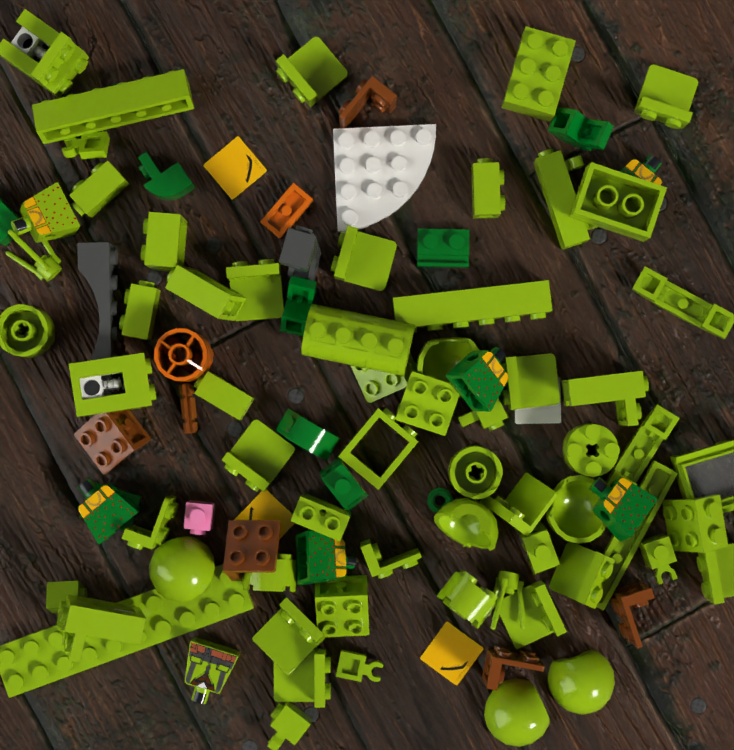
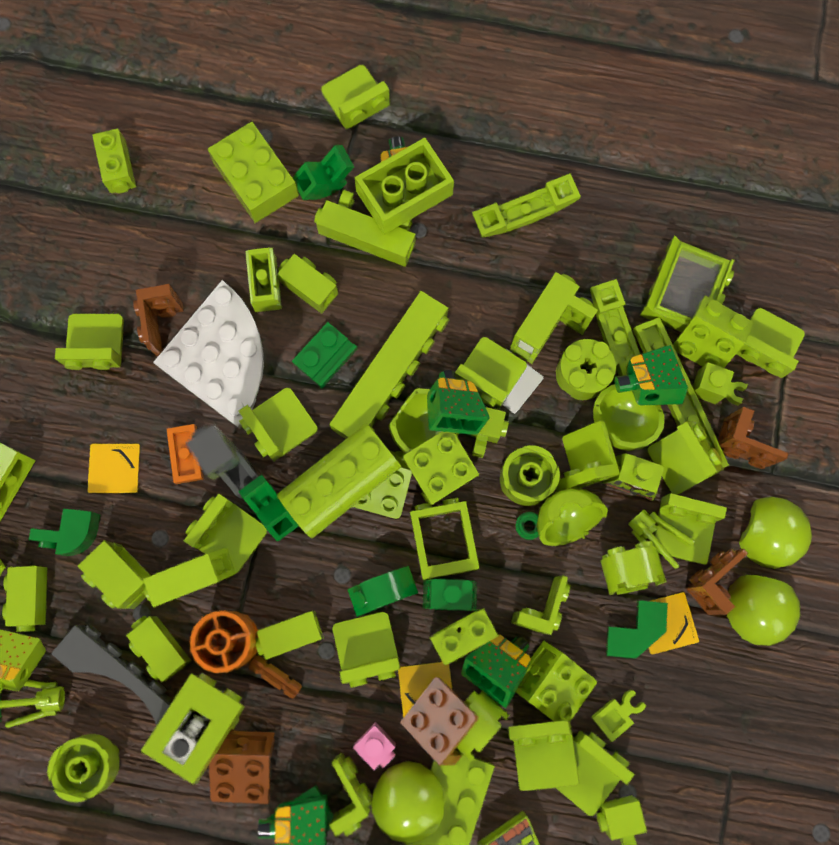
camera: 55 degrees left, 10 degrees down
(438, 642) = (650, 626): none -> green tile
(460, 156) = (263, 279): none -> lime brick

